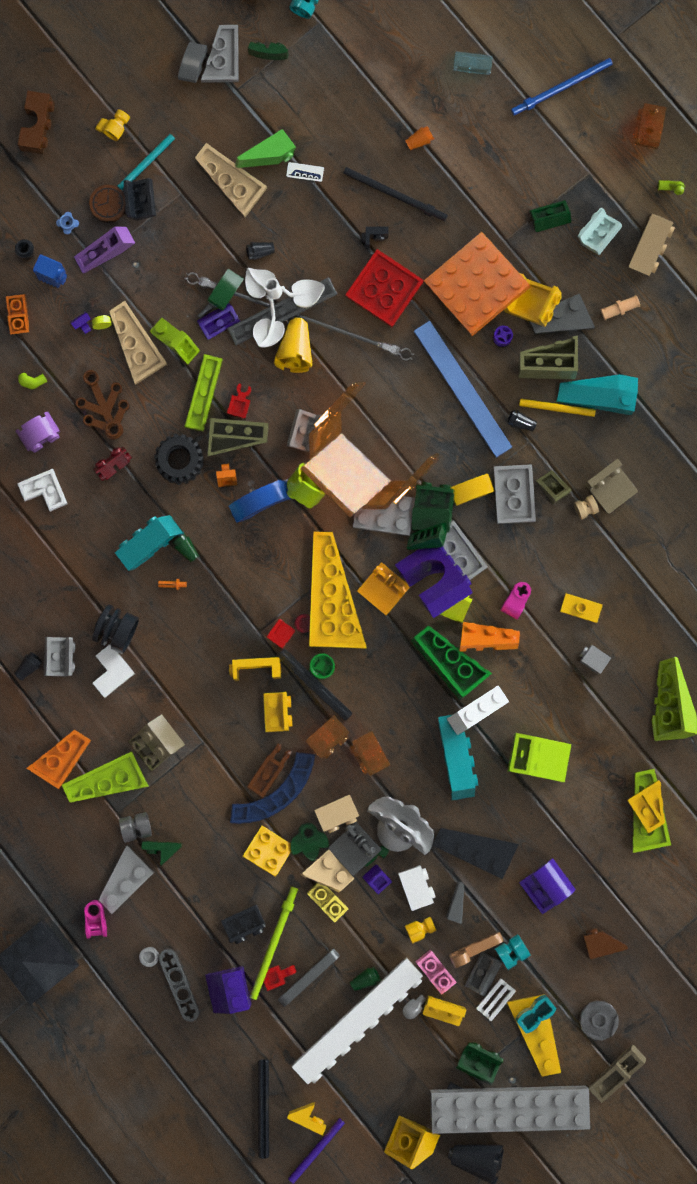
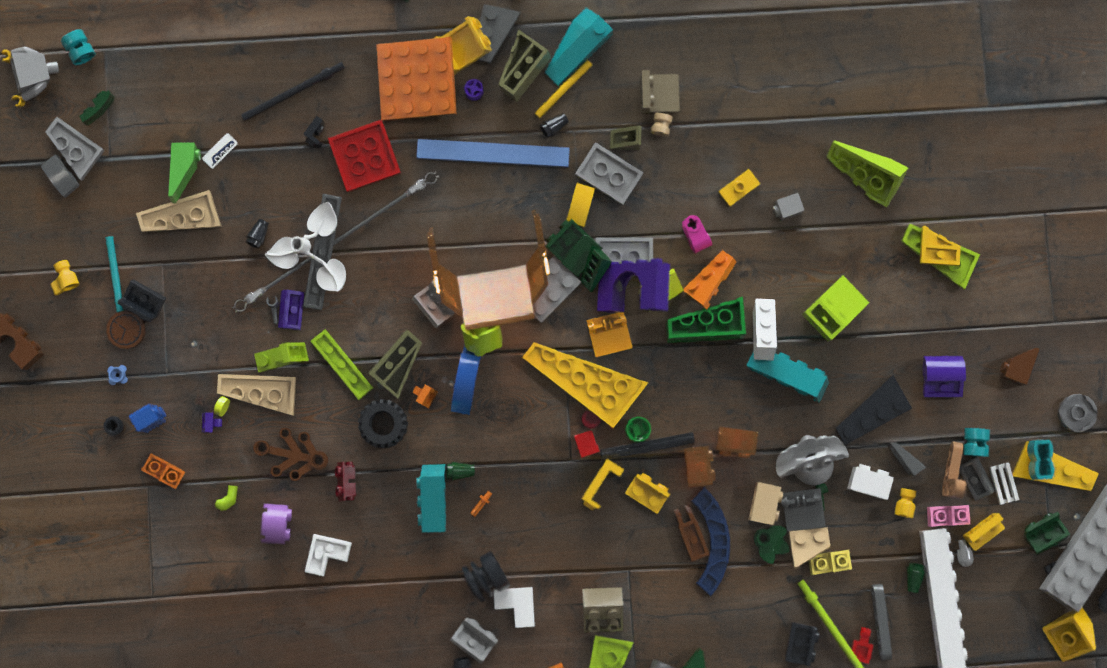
camera: 60 degrees left, 0 degrees up
(104, 248) = (162, 359): medium lavender slope -> none
(225, 289) = (270, 285): dark green slope -> none
(239, 404) = (373, 342): red plate -> none
(268, 851) = (756, 581): yellow hinge -> none
(295, 348) = (360, 263): yellow cone -> none
(377, 879) = (840, 509): dark purple slope -> none
(420, 138) = (262, 37): orange cone -> none

